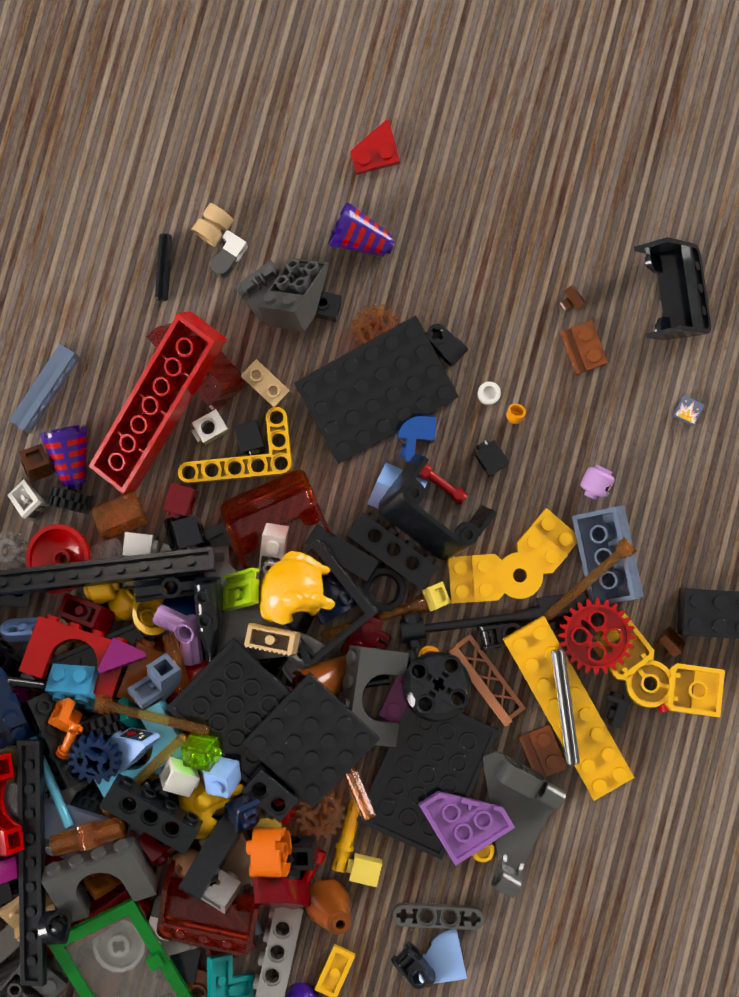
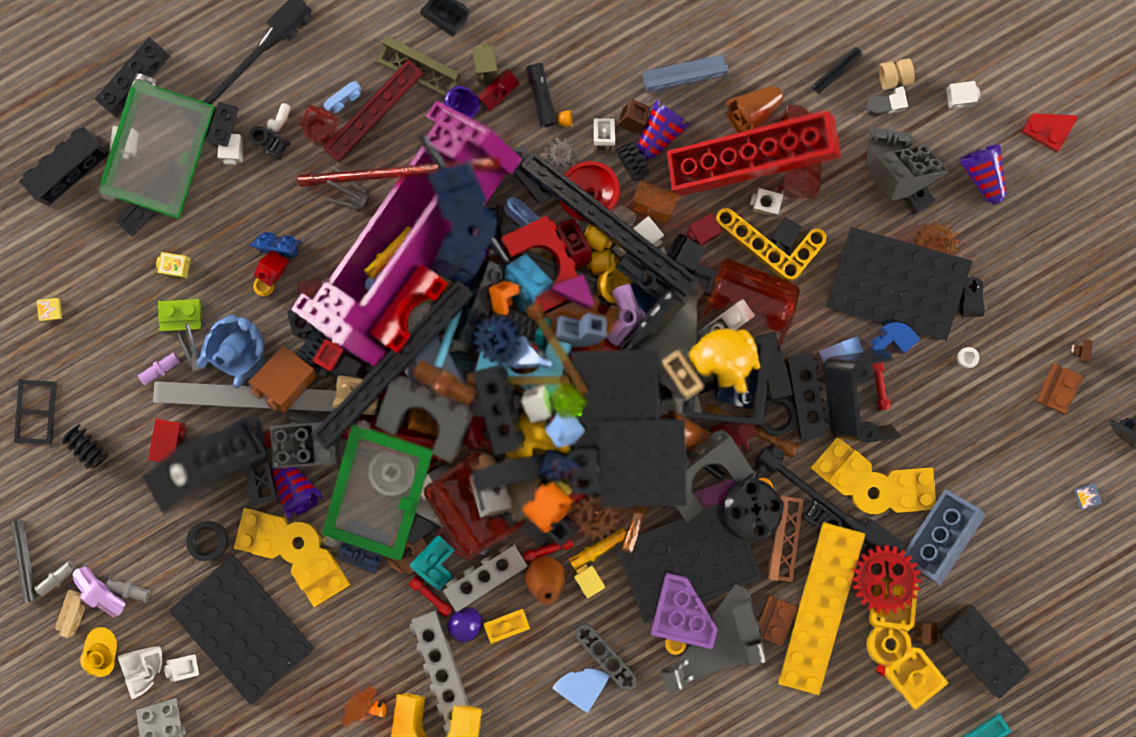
camera: 45 degrees right, 0 degrees up
(55, 927) = (370, 419): black piece -> none
(63, 750) = (482, 315): orange piece -> none
(124, 362) = (753, 108): none -> dark orange cone
(241, 589) = (692, 324): lime plate -> none
(265, 383) = (831, 209): tan bracket -> none
(281, 190) = (962, 94): none -> white brick
(281, 893) = (528, 540): dark red slope -> none
(410, 963) = (560, 669): black piece -> none
(436, 596) = (805, 453): light yellow tile -> none
(490, 457) = (929, 399): black brick -> none
(515, 413) = (973, 387): light orange hinge -> none
(565, 706) = (821, 604): axle -> none
(597, 482) = (982, 483): lavender head -> none
(617, 712) = (847, 642): black bracket -> none
(622, 551) = (959, 541): clear orange piece -> none

